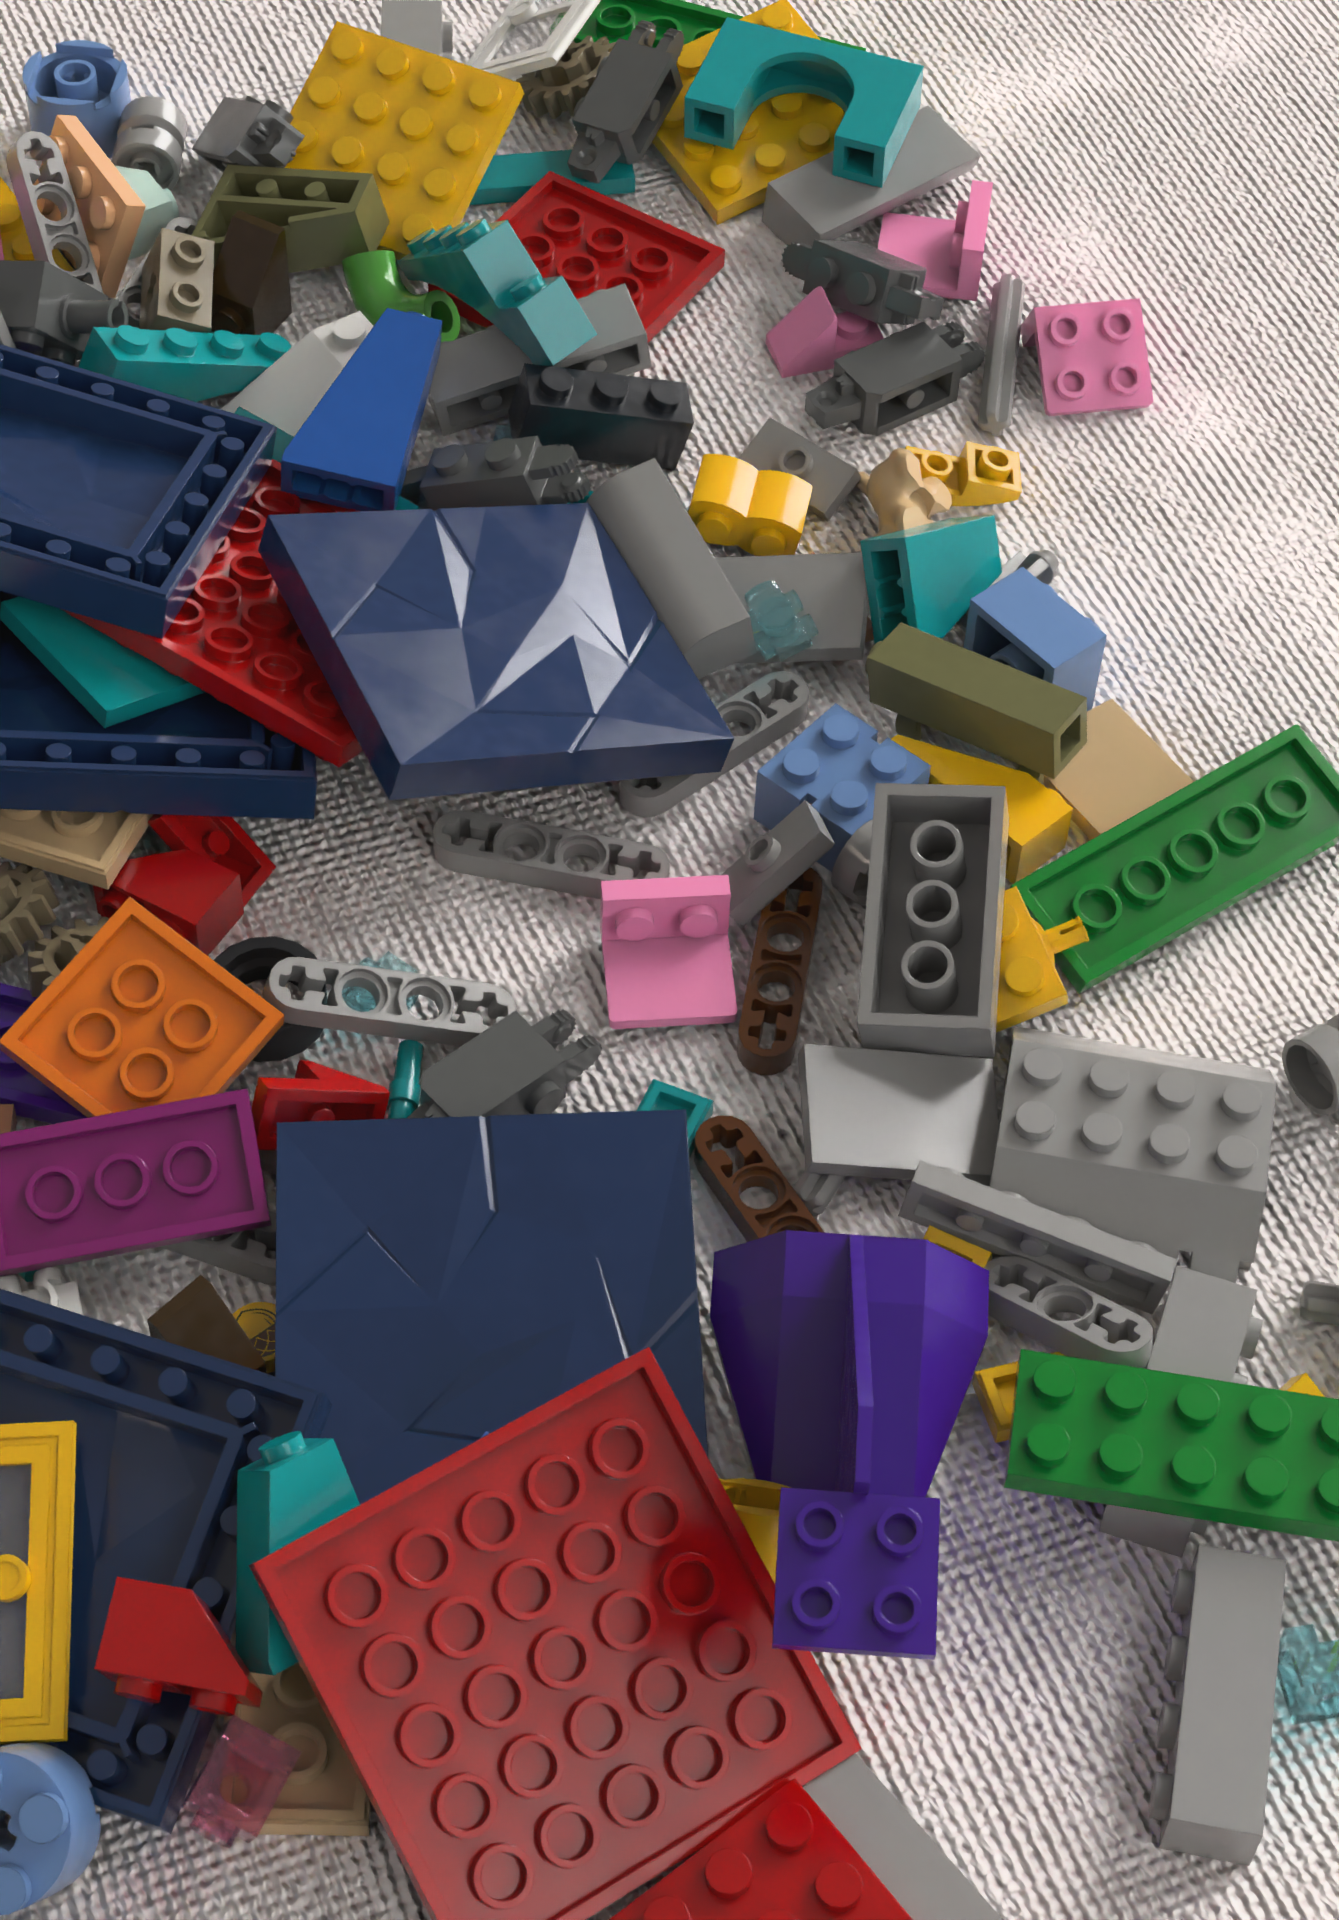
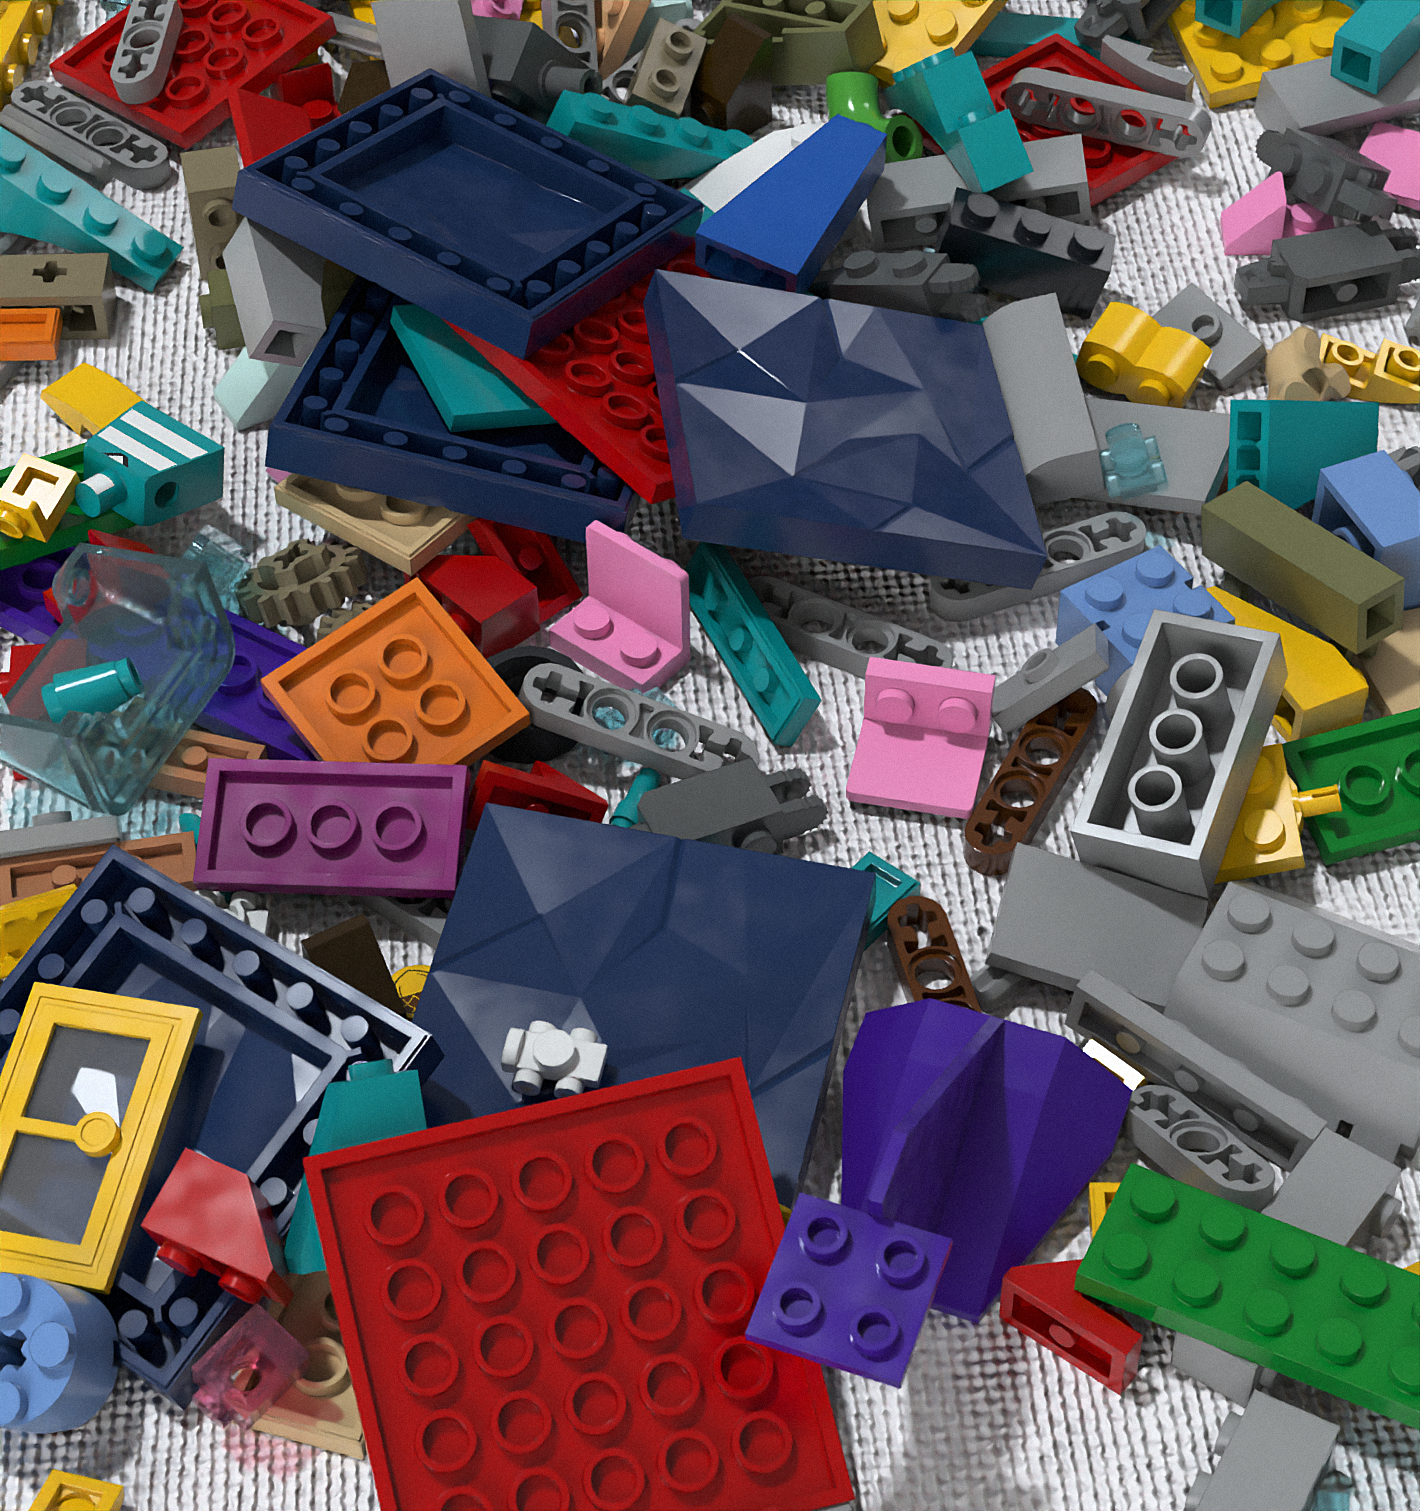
camera: 20 degrees right, 5 degrees down
(339, 882) = (635, 614): none -> bright pink bracket
(434, 1375) = (553, 1055): none -> white piece
(465, 887) = (750, 644): none -> teal tile
(633, 259) = (1108, 103): none -> light grey beam
(639, 192) = (1137, 65): none -> light grey slope
(986, 1513) = (1070, 1323): none -> red slope

